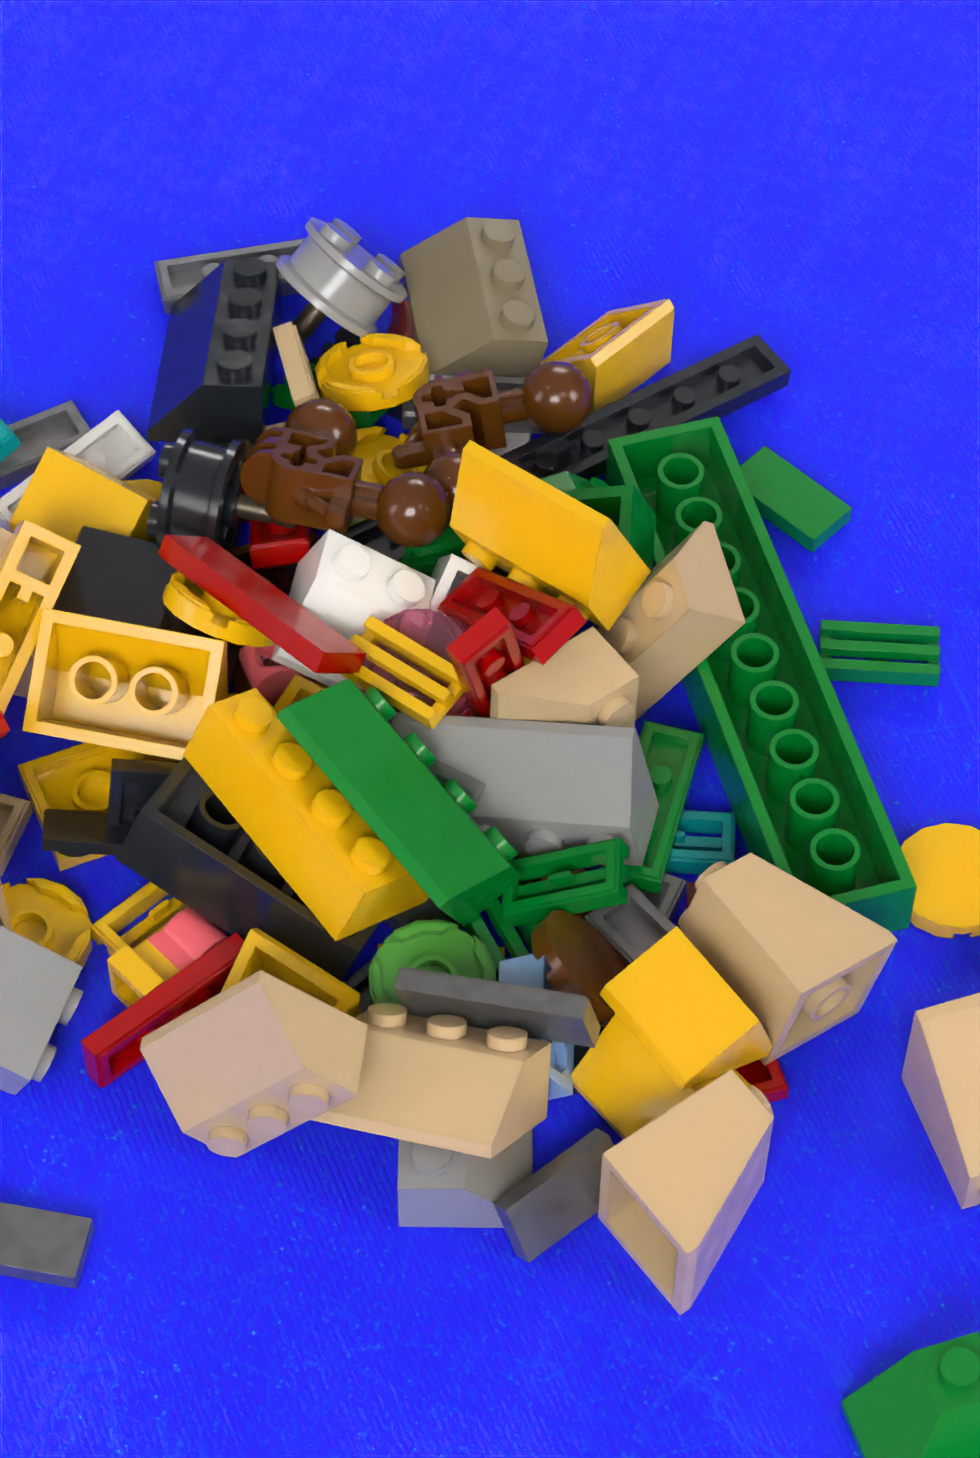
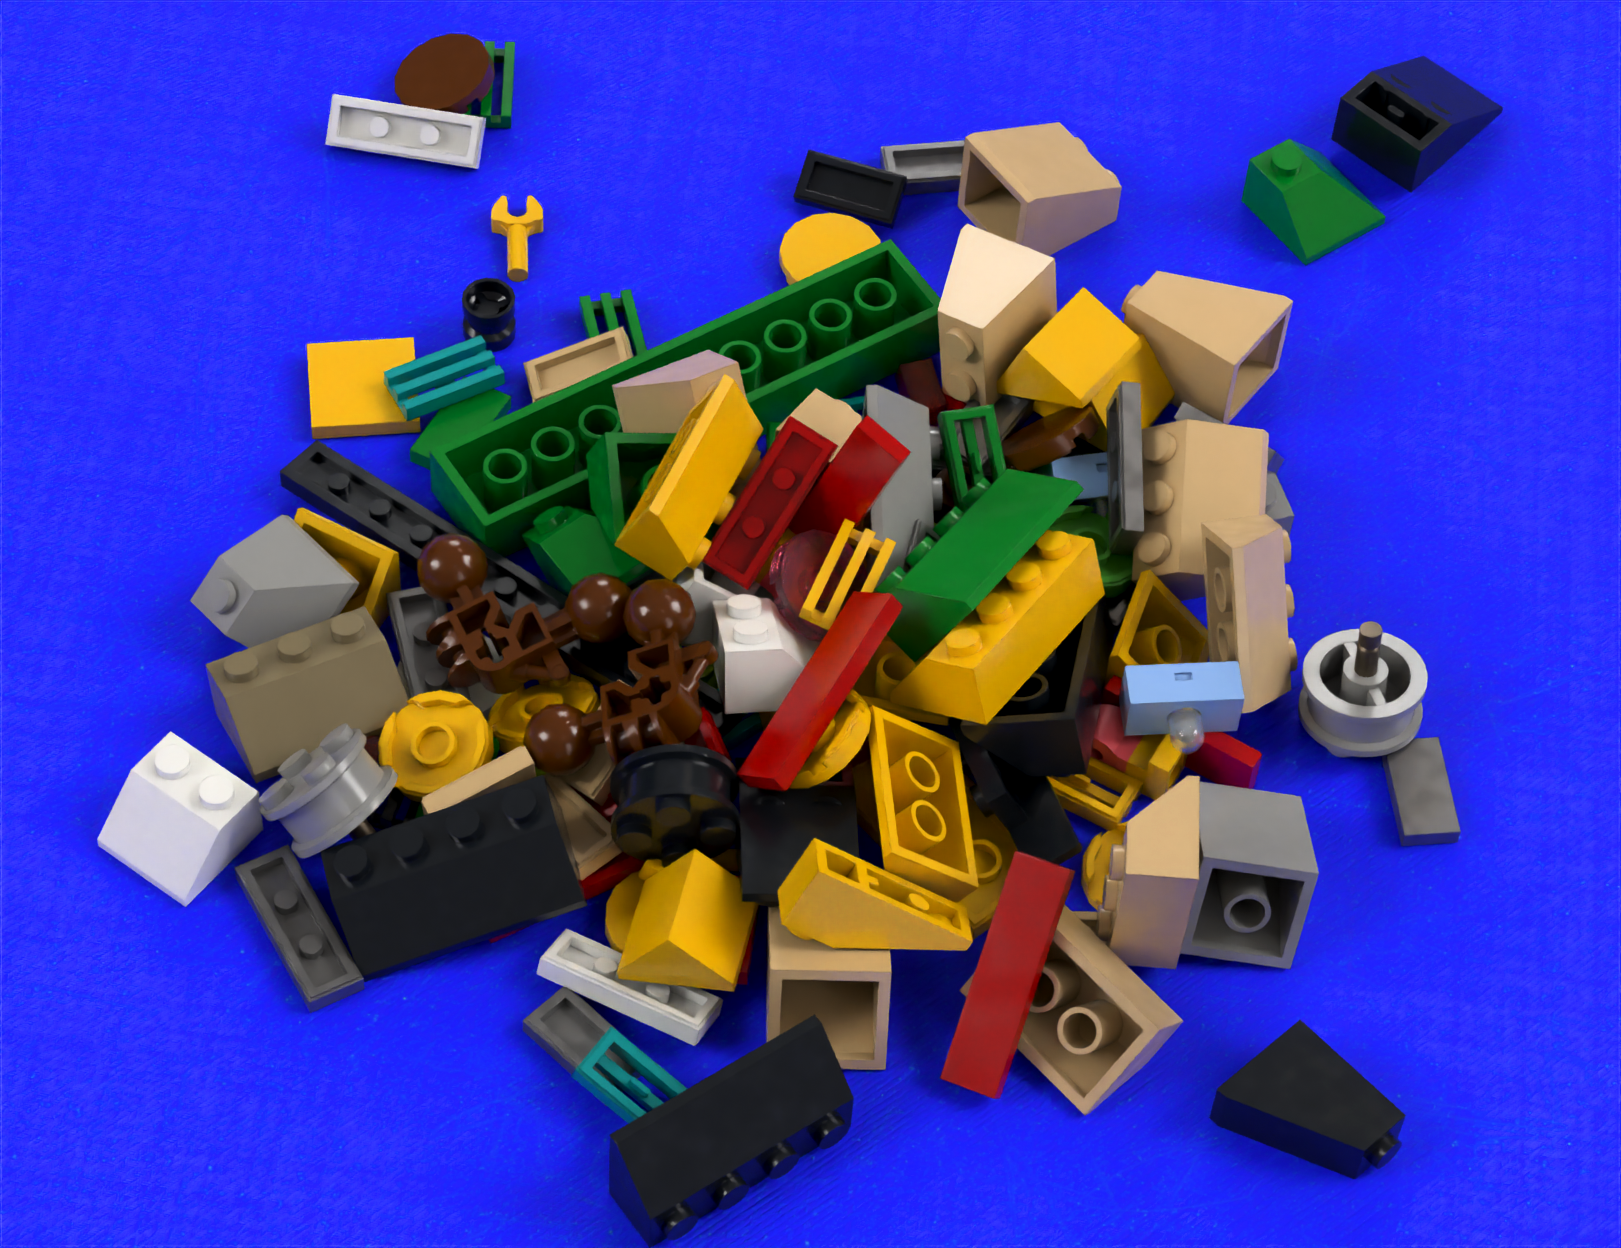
camera: 110 degrees left, 0 degrees up
(143, 1195) = (1362, 692): none -> light grey wheel
(172, 967) = (1181, 701): none -> light blue piece
(388, 205) = (180, 819): none -> white slope
(597, 282) = (273, 585): none -> light grey slope
(832, 601) = (576, 362): none -> tan tile
(834, 447) = (440, 371): none -> teal tile
(863, 432) = (350, 389): none -> yellow tile
(927, 539) = (489, 312): none -> black wheel

